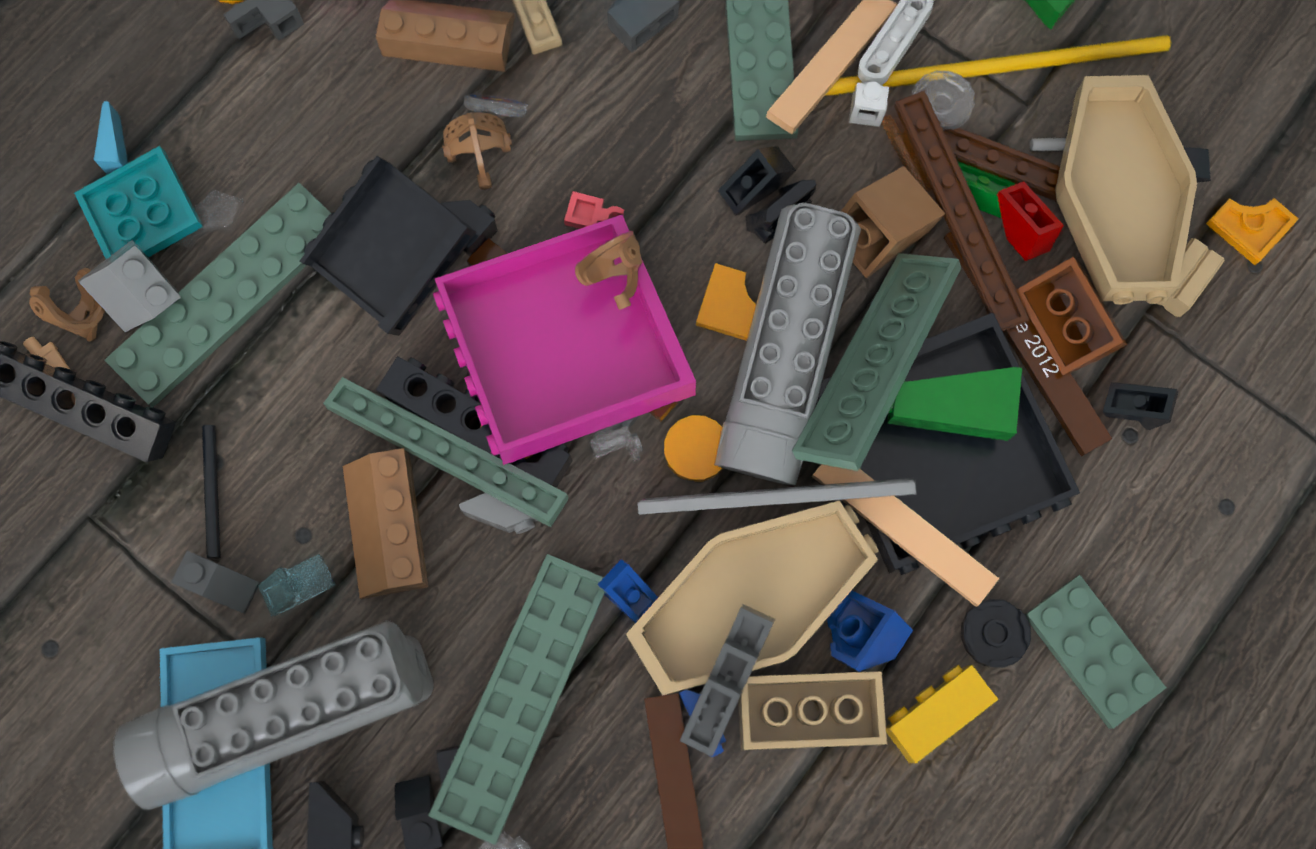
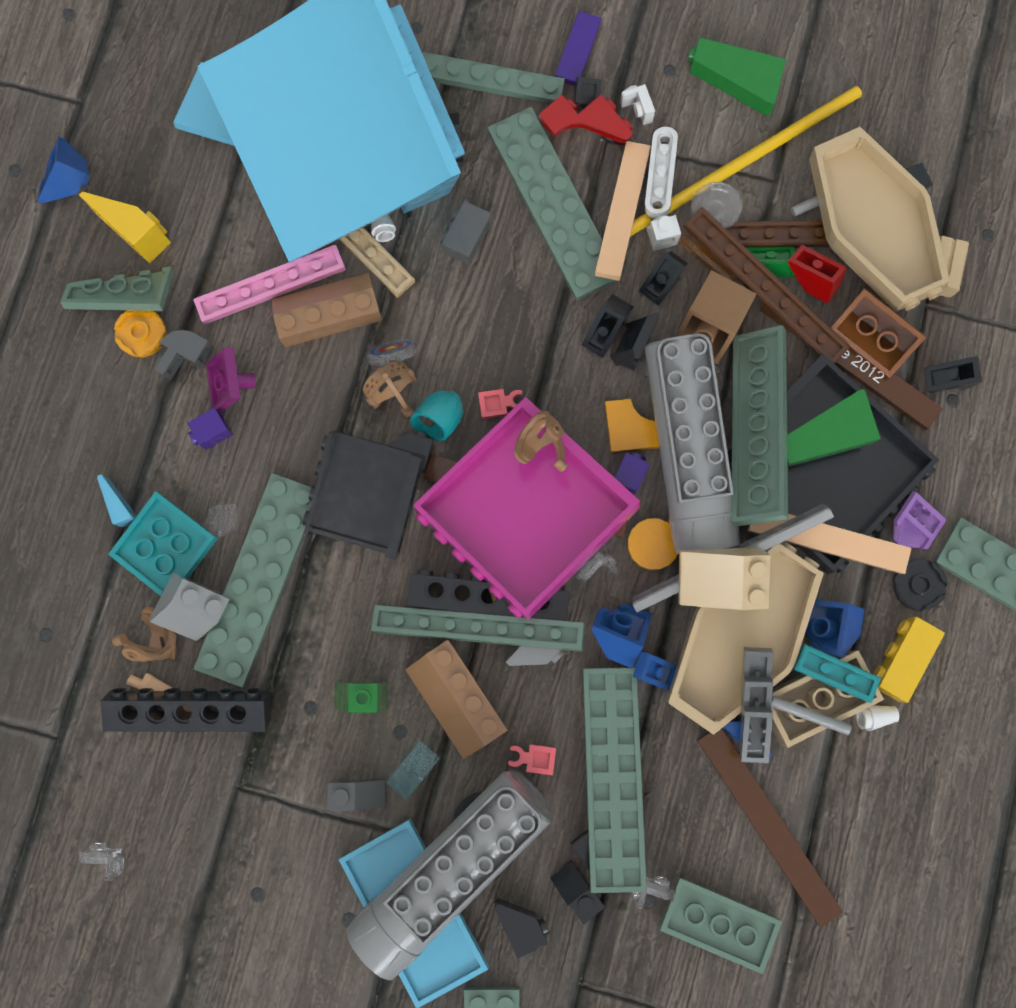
camera: 20 degrees left, 5 degrees up
(211, 492) = (318, 730): black bar -> none
(253, 105) = (209, 429): none -> dark purple brick
(276, 468) = (361, 697): none -> green slope
(294, 60) = (225, 381): none -> magenta tile
(444, 636) = (538, 759): none -> coral plate
(523, 191) = (444, 409): none -> teal piece
(610, 530) = (621, 632): none -> blue slope
(708, 354) = (632, 471): none -> dark purple brick
(753, 510) = (725, 578): none -> tan slope
(791, 725) = (811, 715): none -> light grey bar
(842, 687) = (837, 673): none -> teal tile
(845, 152) = (663, 277): none -> black slope
(871, 765) = (877, 717): none -> white cone
(1022, 557) = (917, 523): none -> medium lavender slope
(1252, 229) = (976, 208): light orange tile -> none

